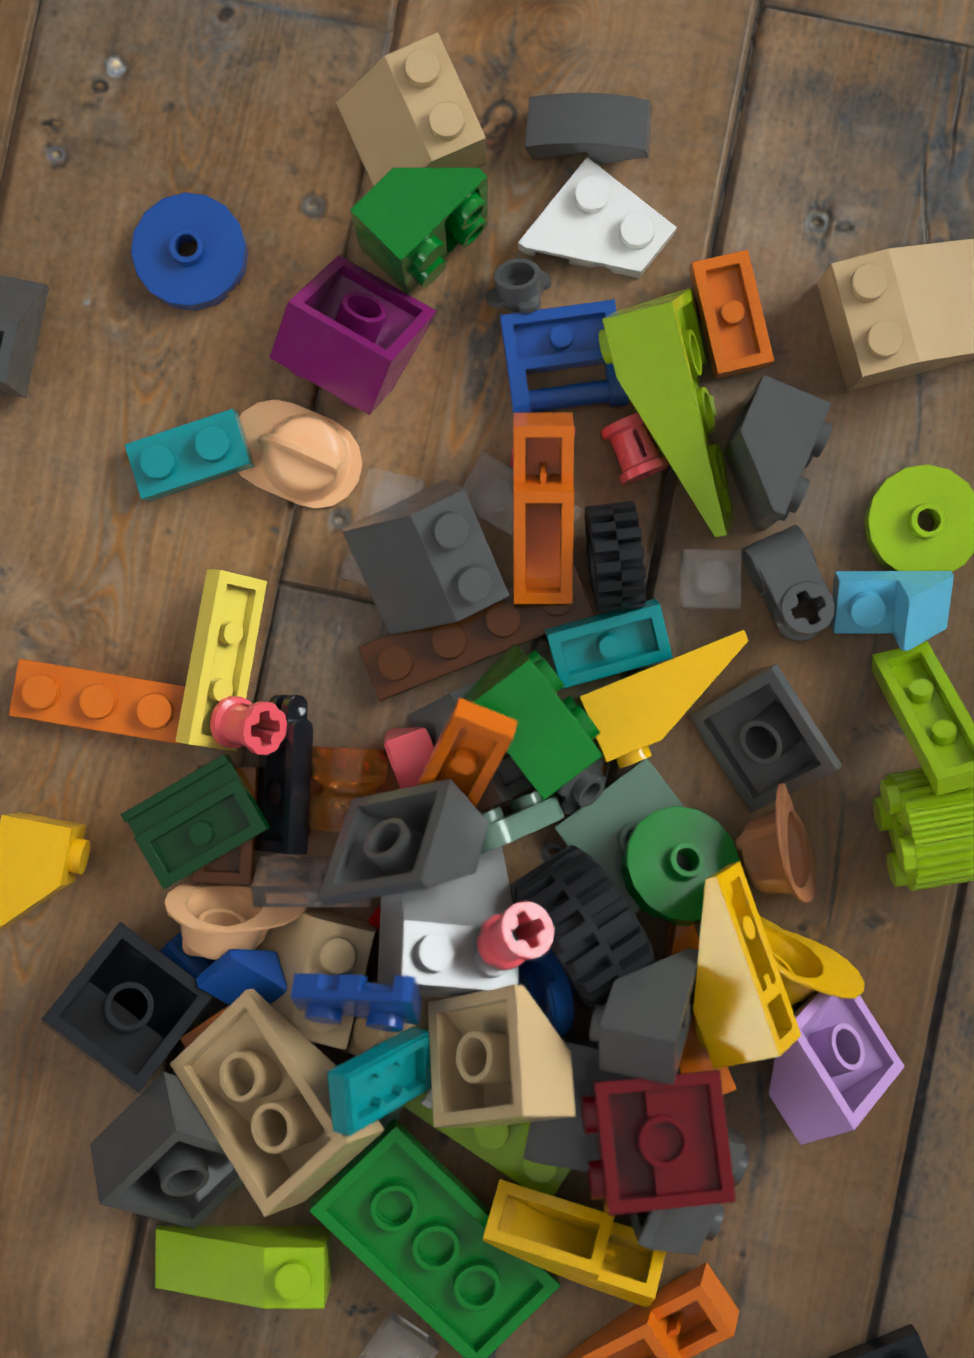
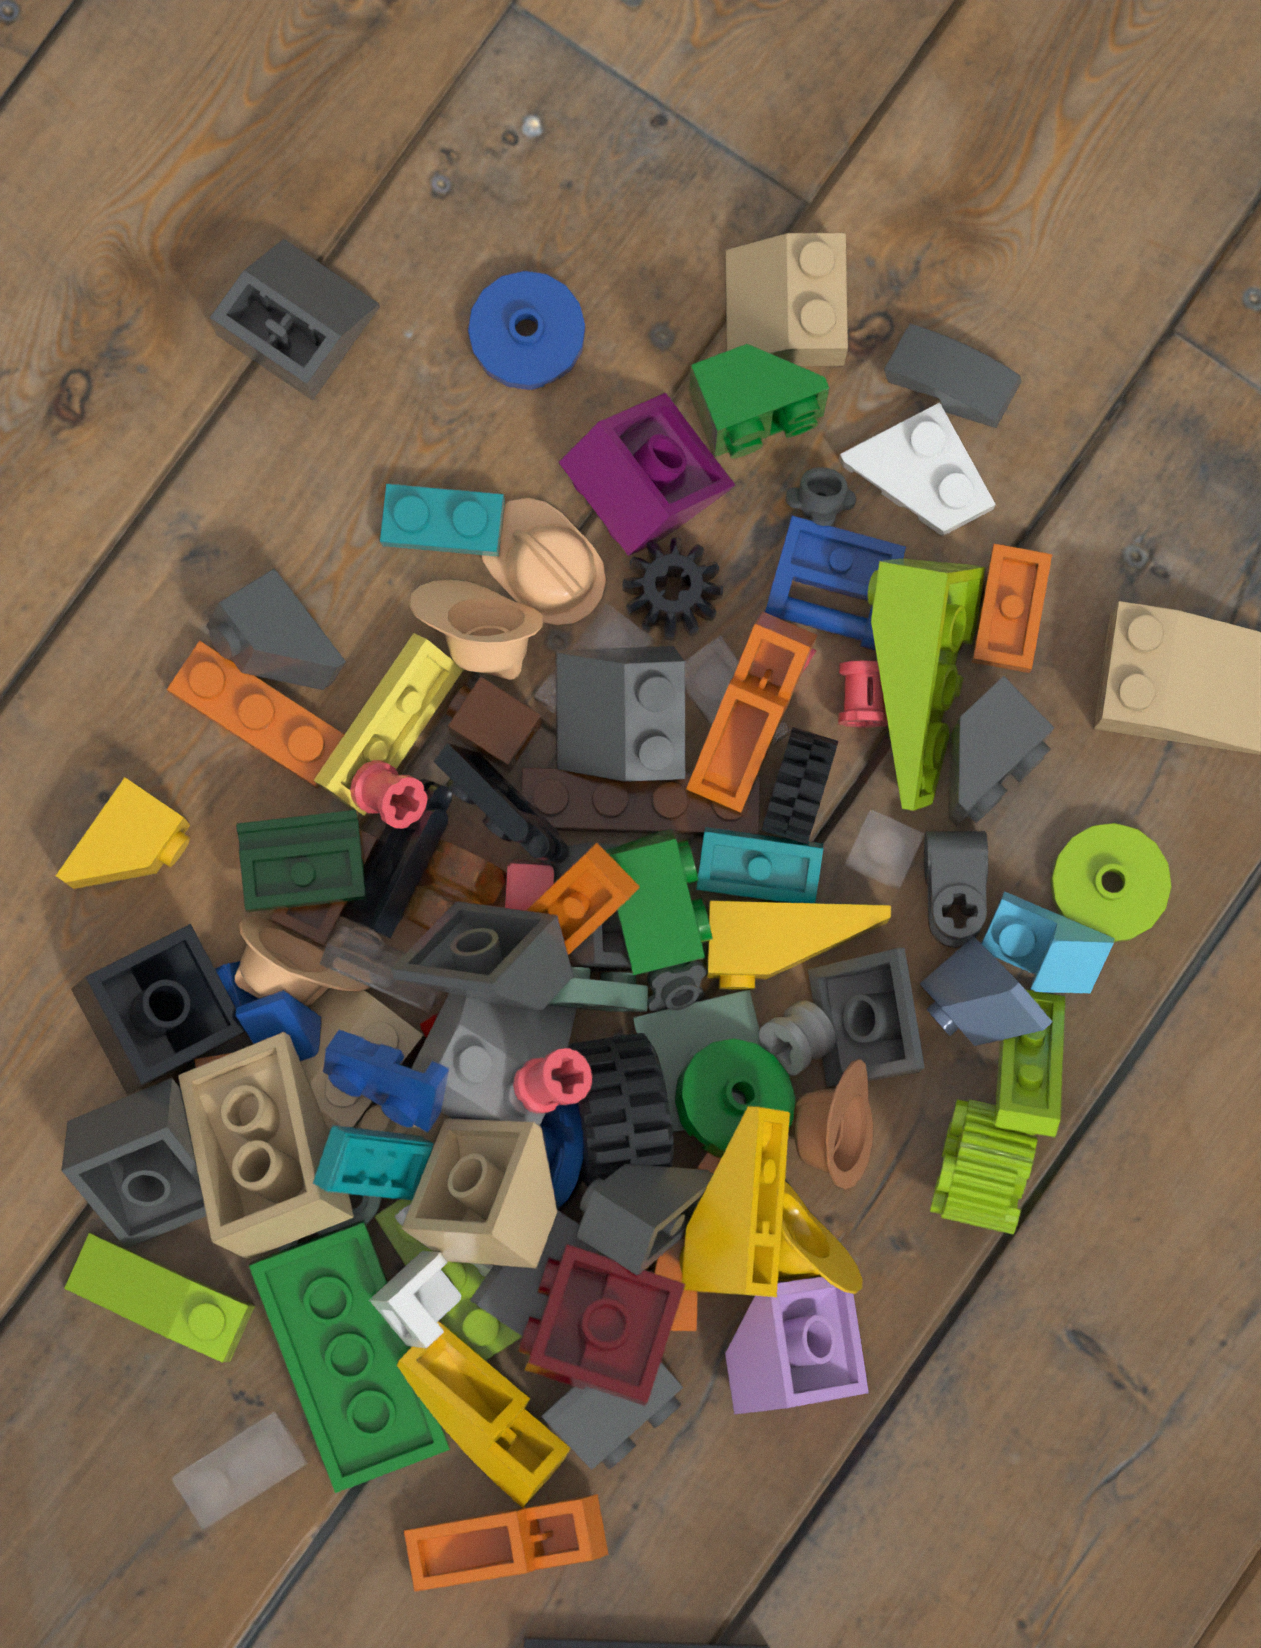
camera: 20 degrees right, 5 degrees down
(80, 625) = (273, 635): none -> dark grey slope
(262, 535) = (479, 625): none -> light nougat piece
(313, 618) = (492, 723): none -> reddish brown brick
(361, 694) = (505, 808): none -> black hinge
(442, 432) = (657, 574): none -> black gear
(475, 1173) = (417, 1299): none -> white panel
(709, 782) = (798, 1036): none -> light grey wheel
(863, 677) = (981, 998): none -> sand blue slope

